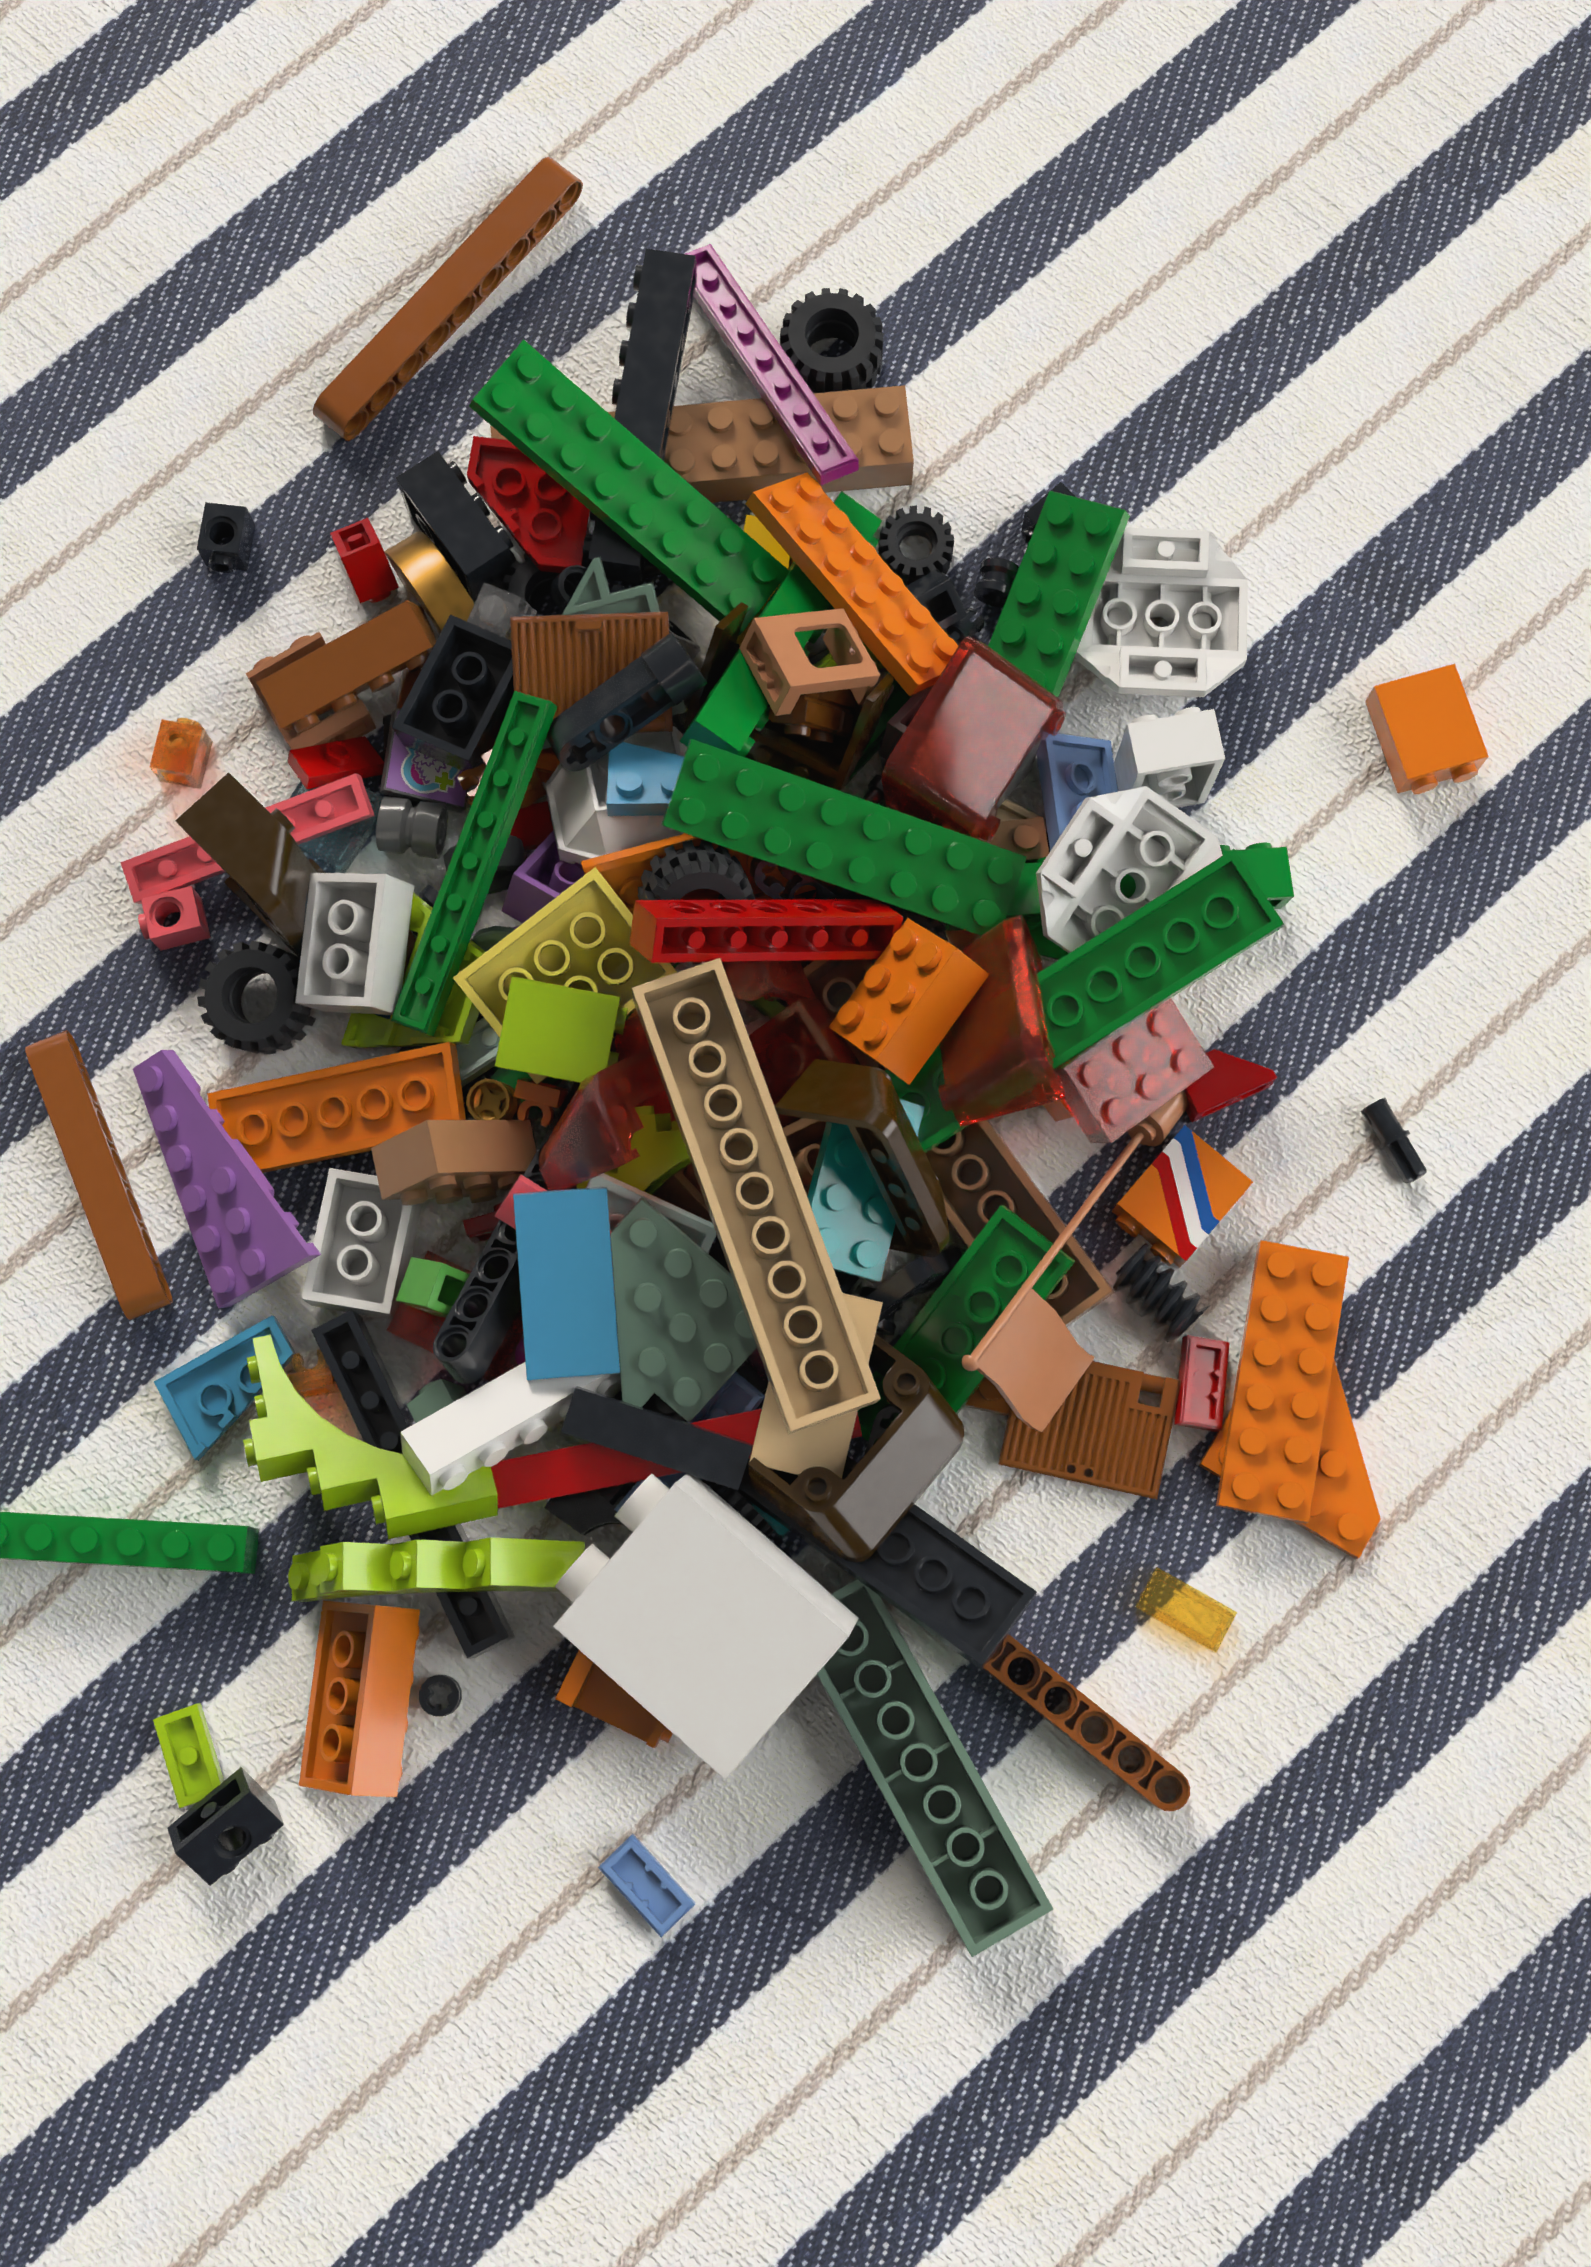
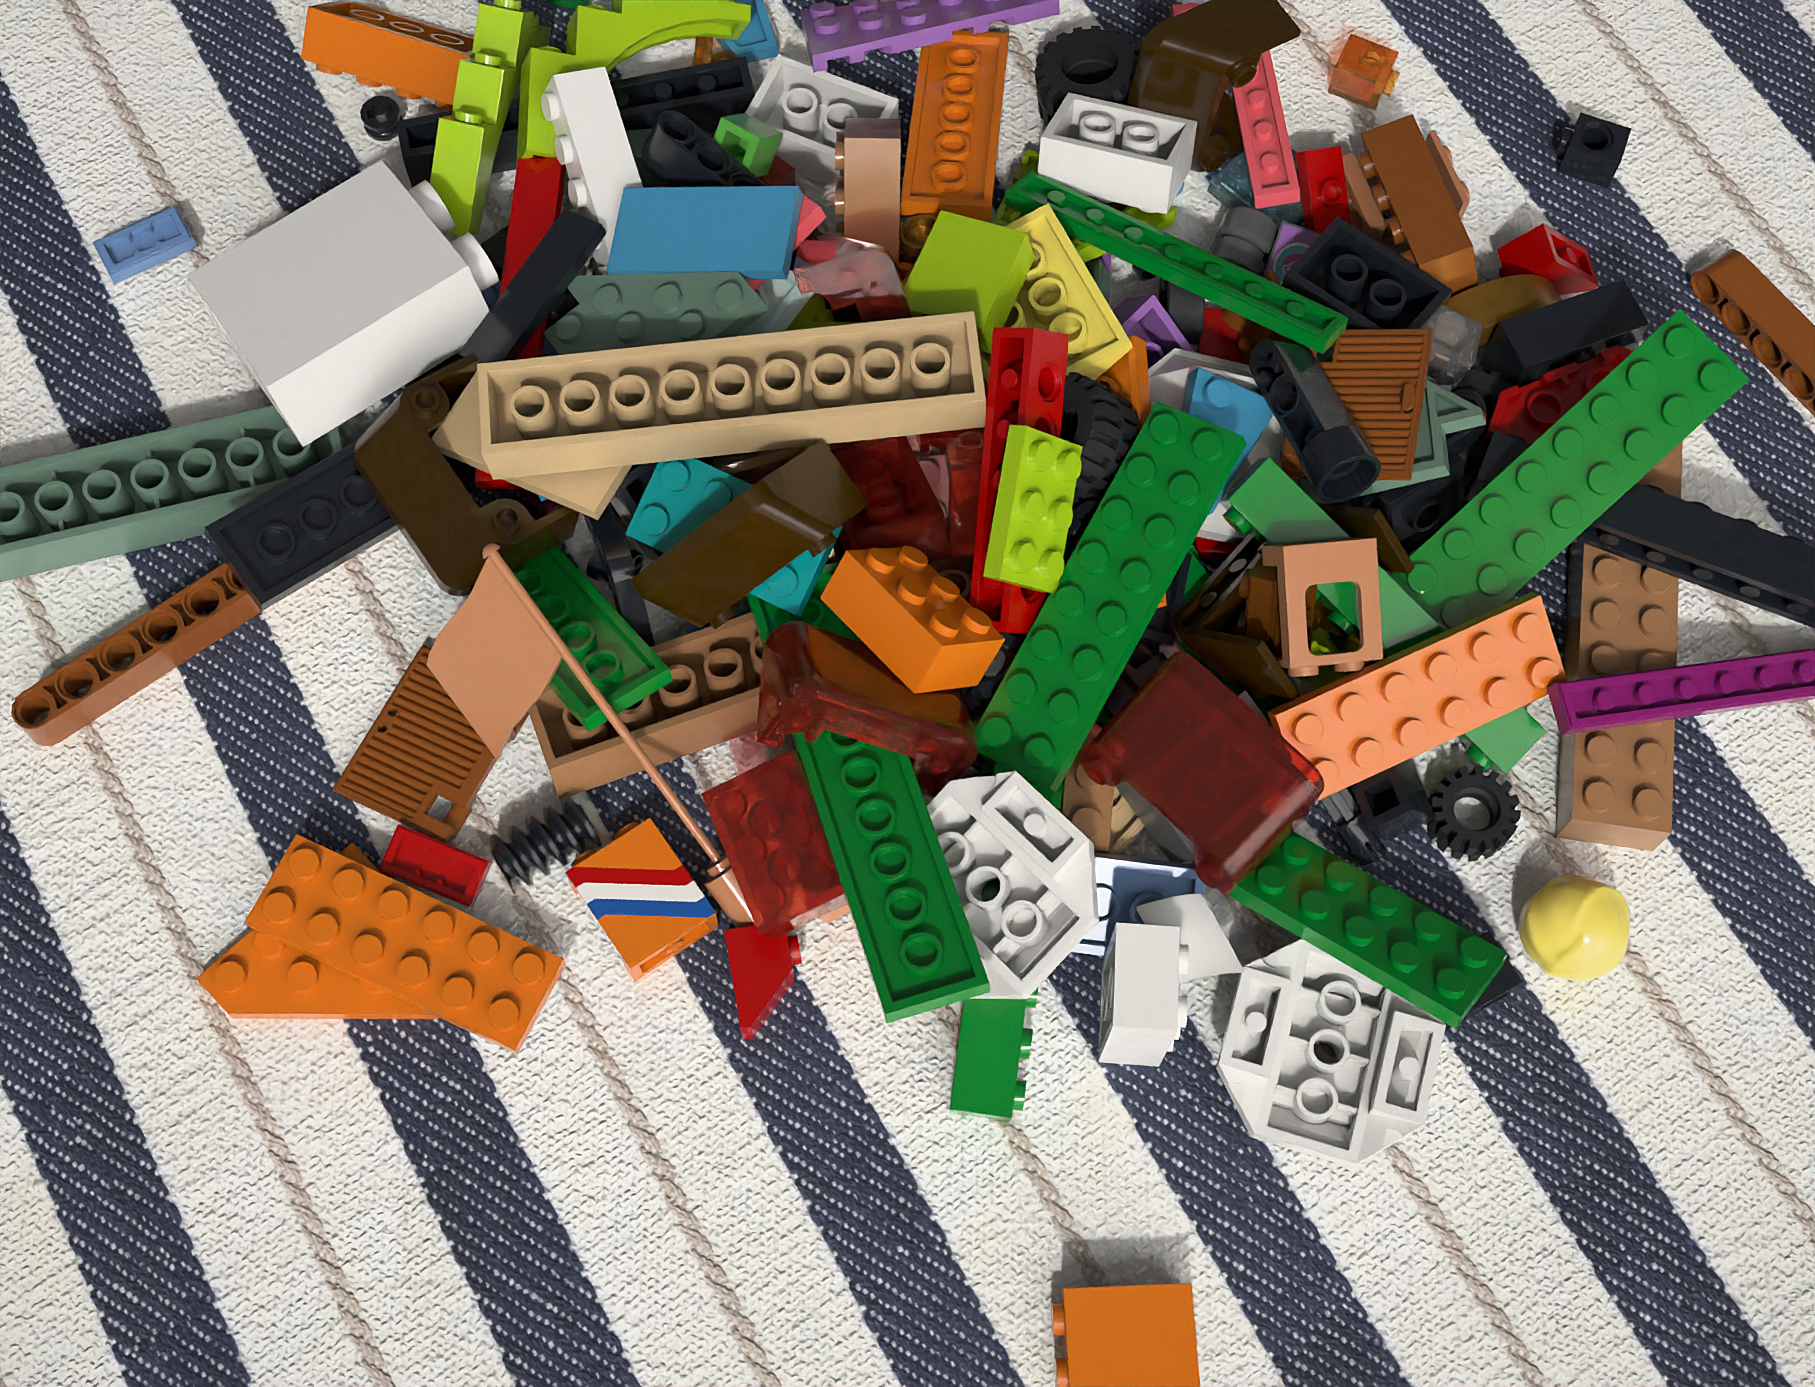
camera: 100 degrees right, 10 degrees down
(802, 903) = (1033, 509): none -> lime plate
(834, 317) = (1757, 747): black tyre -> none
(996, 581) = (1414, 883): black wheel -> none
(999, 451) = (1575, 927): none -> light yellow piece
(1101, 737) = (1207, 943): none -> white sticker
(1185, 1609) = (211, 790): clear yellow tile -> none
(1394, 1140) = (637, 1156): black axle -> none

